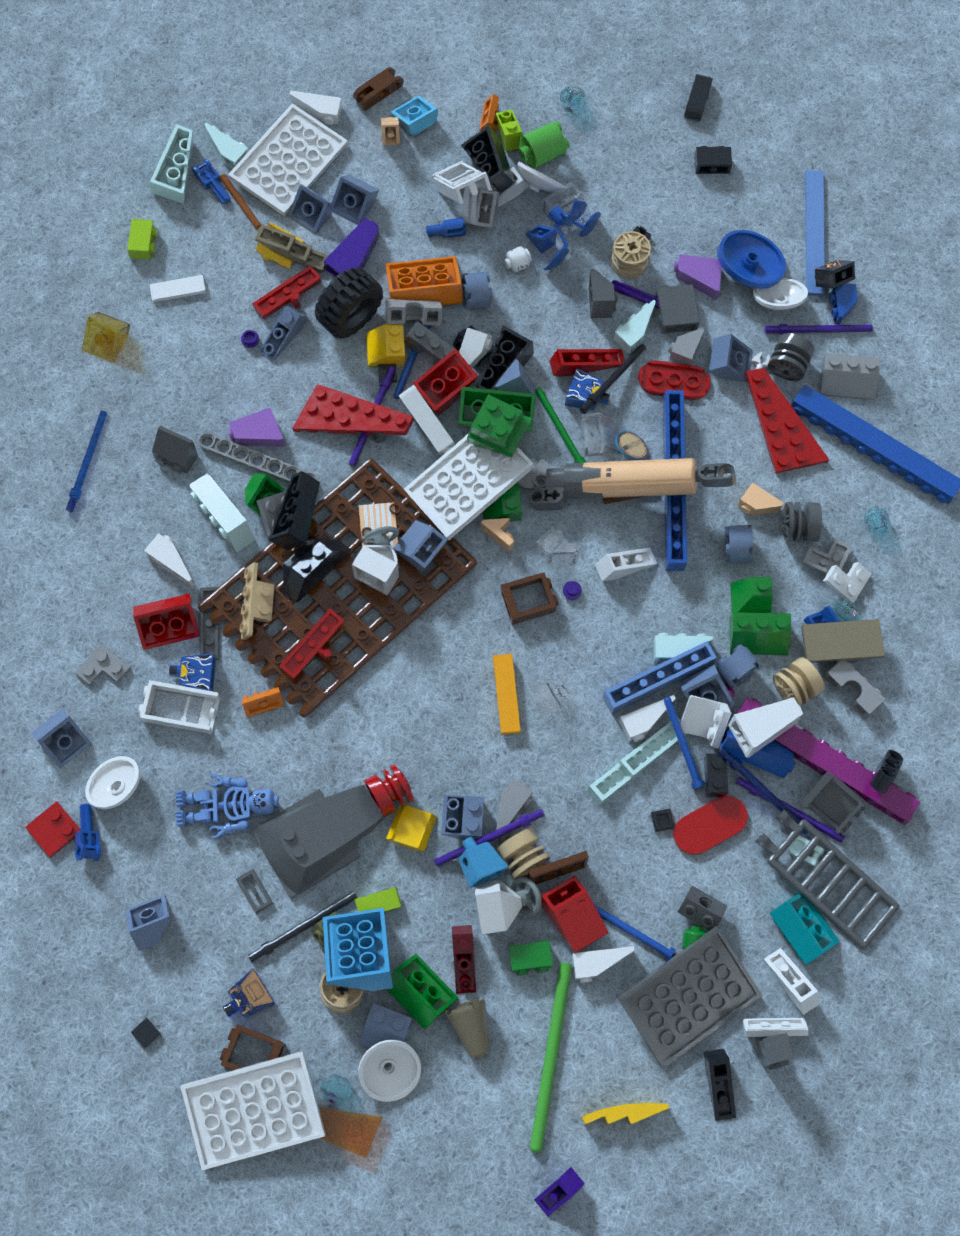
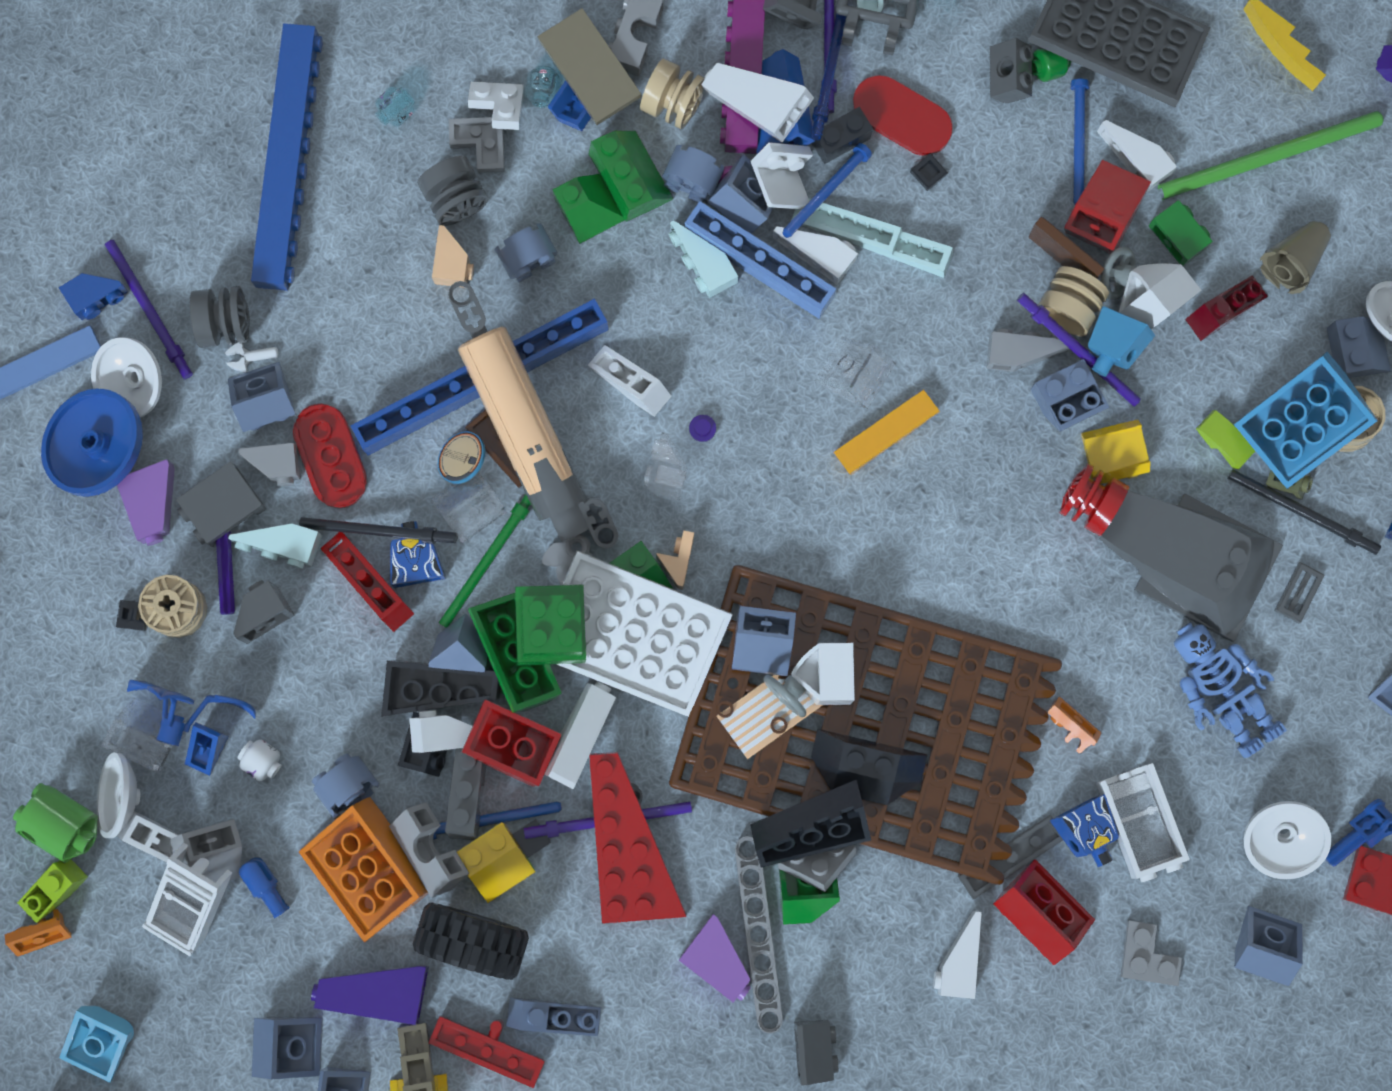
camera: 120 degrees left, 10 degrees up
(221, 512) = (860, 934): light aqua wedge -> none
(250, 338) = (586, 1059): dark purple plate -> none
(257, 601) = (956, 807): tan bracket -> none
(312, 644) = (970, 700): red plate -> none
(390, 131) = (144, 1062): light nougat slope -> none
(421, 991) = (1293, 331): green slope -> none
(489, 156) = (125, 881): black wedge -> none
(516, 617) = (766, 493): reddish brown window -> none
(785, 434) = (332, 275): red wing -> none
(835, 274) = (58, 320): black brick -> none
(849, 376) = (203, 234): light grey slope -> none

